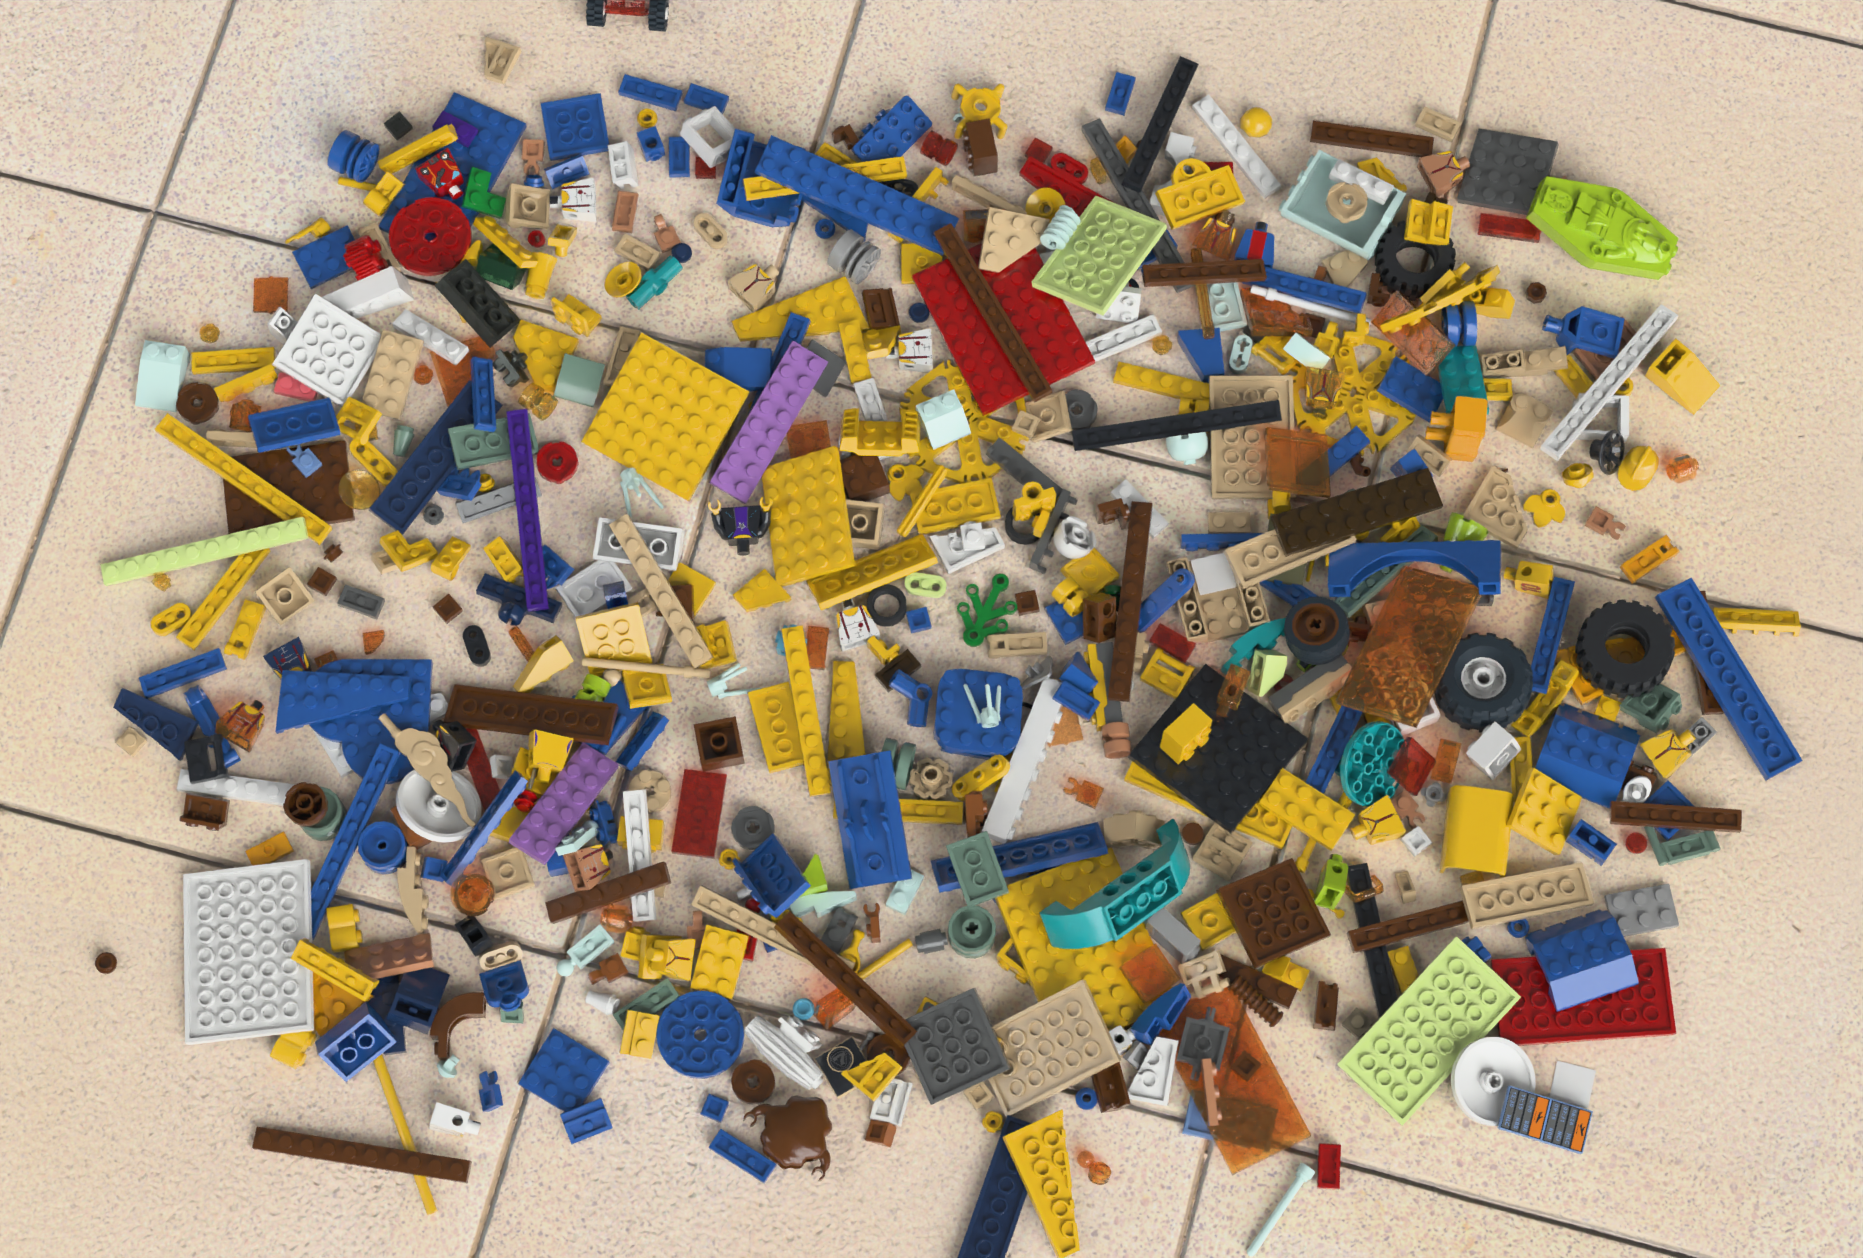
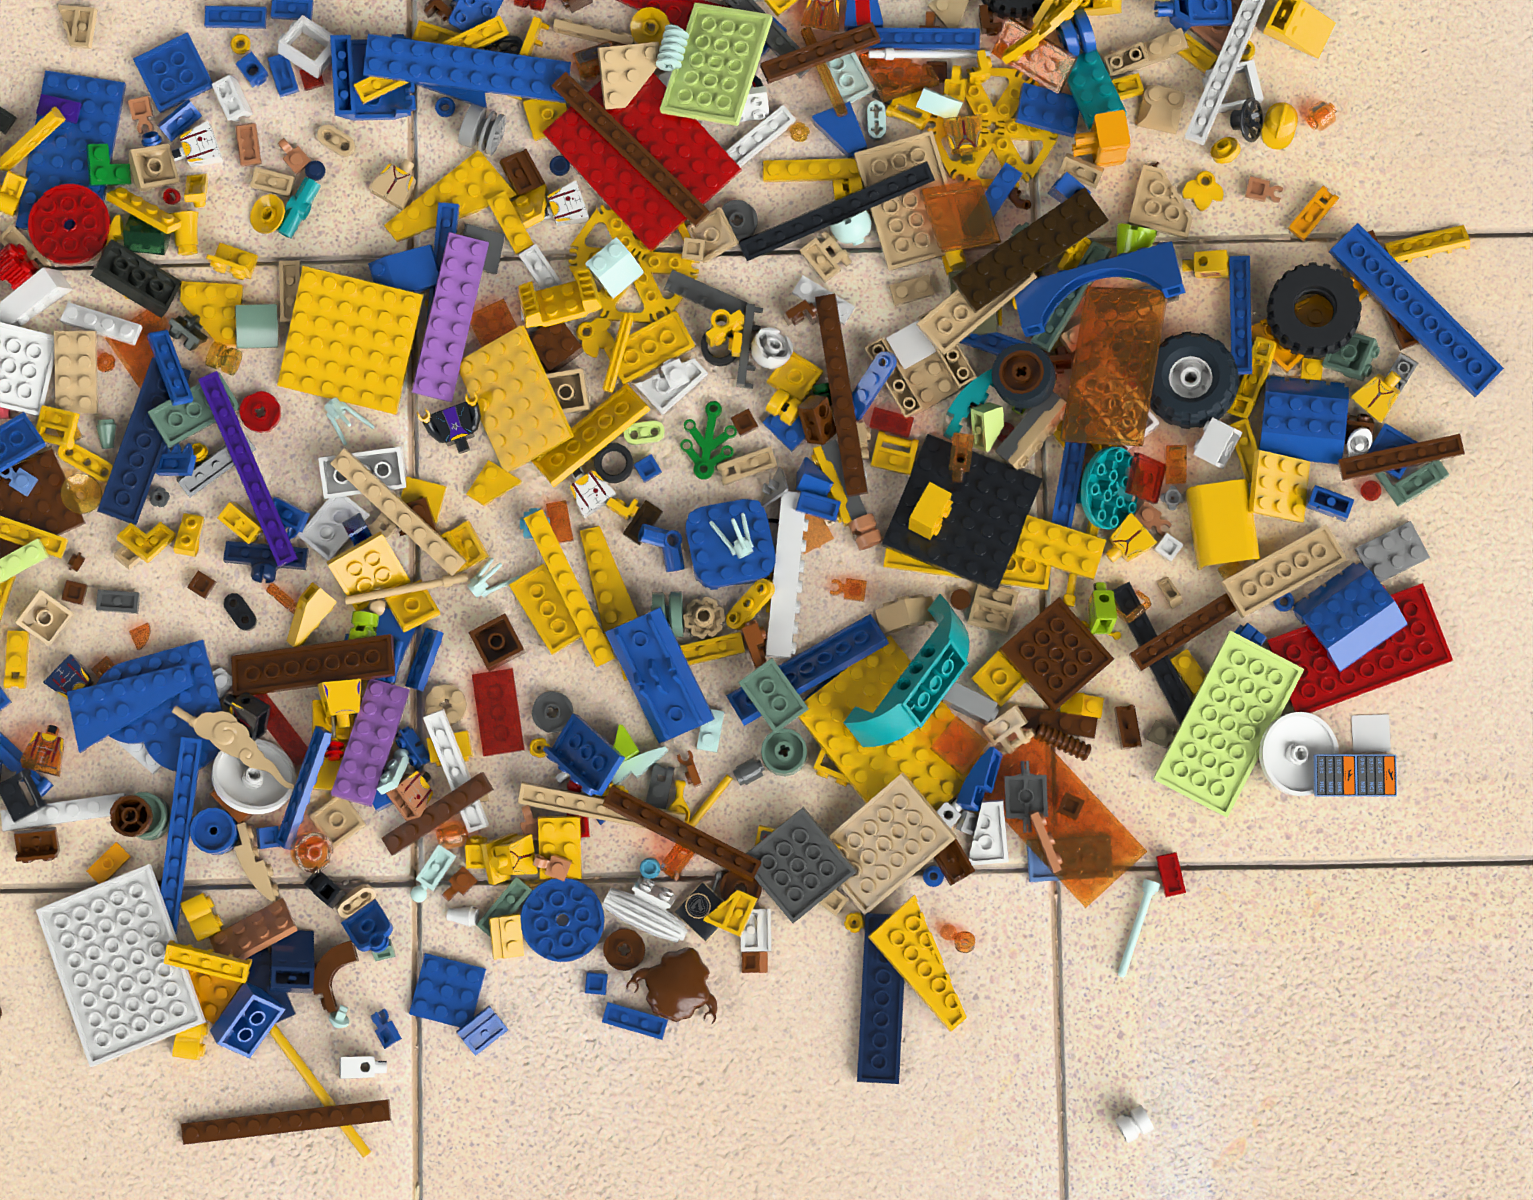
camera: 10 degrees left, 10 degrees up
(441, 175) = (61, 160): red torso -> none
(501, 766) = (300, 721): white plate -> none
(710, 978) = (555, 866): none -> nougat plate
(1147, 468) = (820, 259): none -> tan plate
(1213, 542) = (903, 313): blue plate -> none

